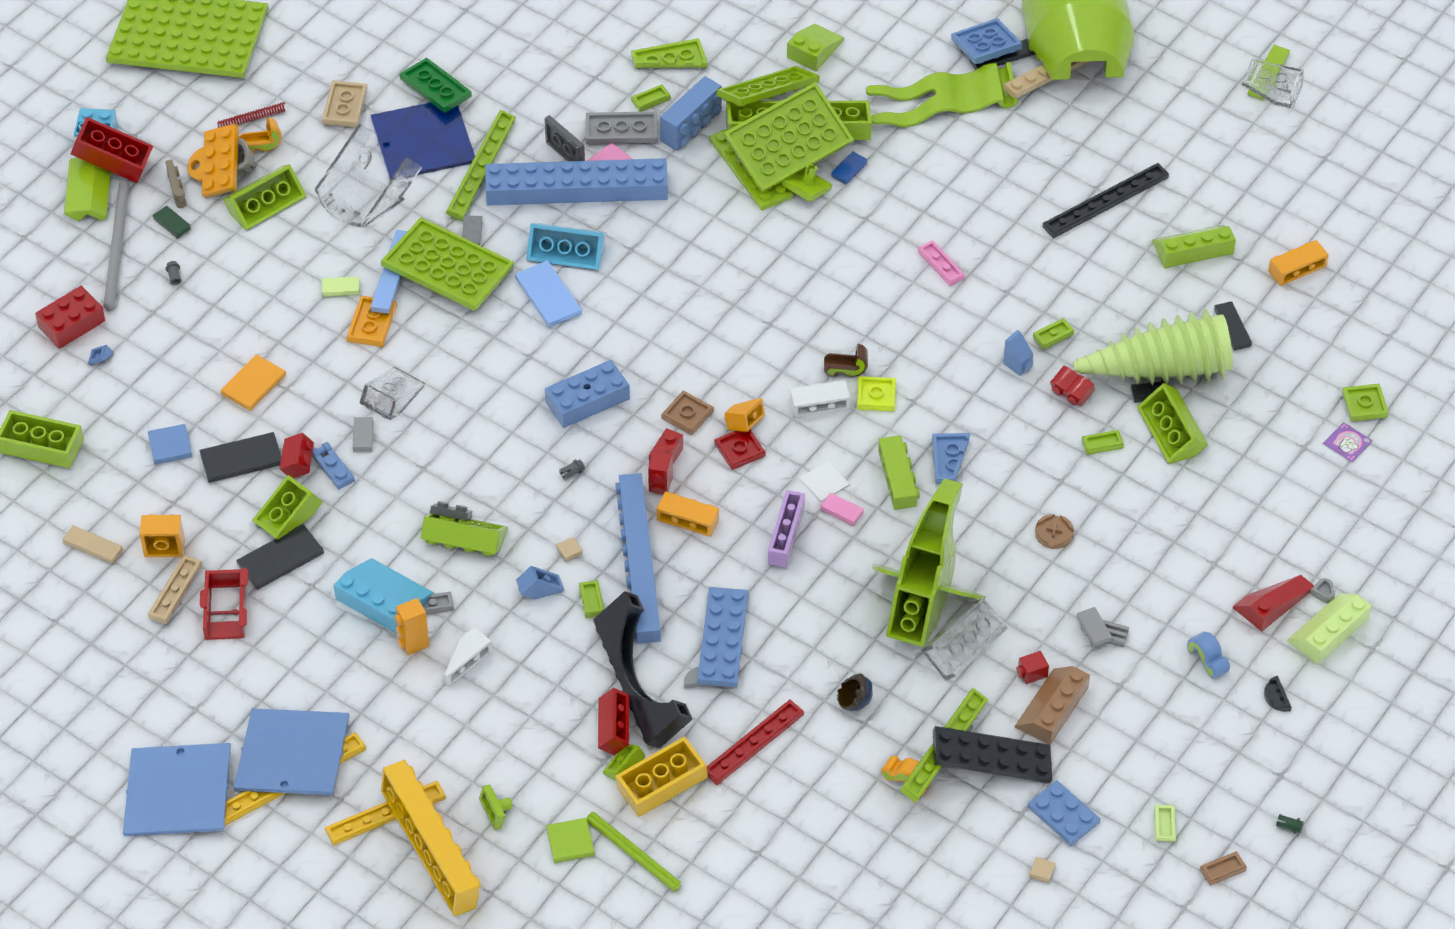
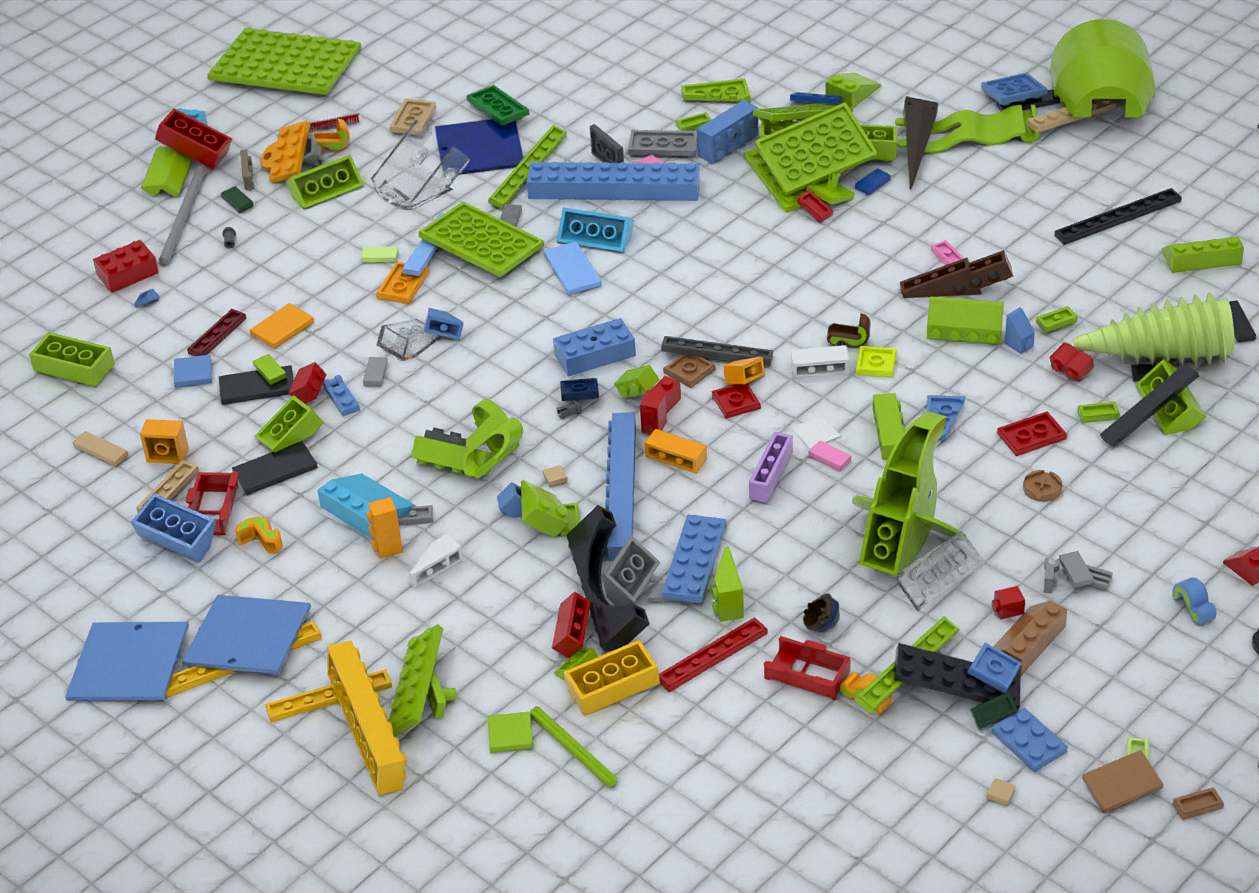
camera: 10 degrees right, 10 degrees down
(185, 395) = (217, 333): none -> dark red tile
(195, 636) = (175, 527): none -> medium blue slope
(252, 439) = (269, 369): none -> lime tile
(283, 631) = (261, 529): none -> light orange animal
(424, 373) = (443, 324): none -> medium blue slope
(470, 792) = (415, 680): none -> lime plate
(503, 504) = (498, 432): none -> lime panel
(565, 592) = (542, 510): none -> lime slope
(579, 446) = (579, 389): none -> dark blue tile
(638, 436) = (636, 381): none -> lime brick
(664, 662) = (629, 573): none -> light grey slope
(712, 390) = (714, 350): none -> dark grey tile
(763, 674) = (727, 590): none -> lime slope
(775, 61) = (816, 98): none -> blue tile
(792, 204) = (815, 206): none -> red tile
(849, 735) = (812, 653): none -> red piece
(891, 88) = (918, 120): none -> dark brown plate
(951, 290) = (959, 277): none -> reddish brown brick
(962, 343) = (965, 320): none -> lime slope
(1026, 742) = (994, 668): none -> medium blue tile
(1028, 785) = (993, 710): none -> dark green tile
(1039, 471) = (1031, 433): none -> red tile
(1070, 636) = (1050, 575): none -> light grey plate
(1153, 436) = (1149, 405): none -> black tile
(1153, 851) = (1122, 781): none -> medium nougat tile

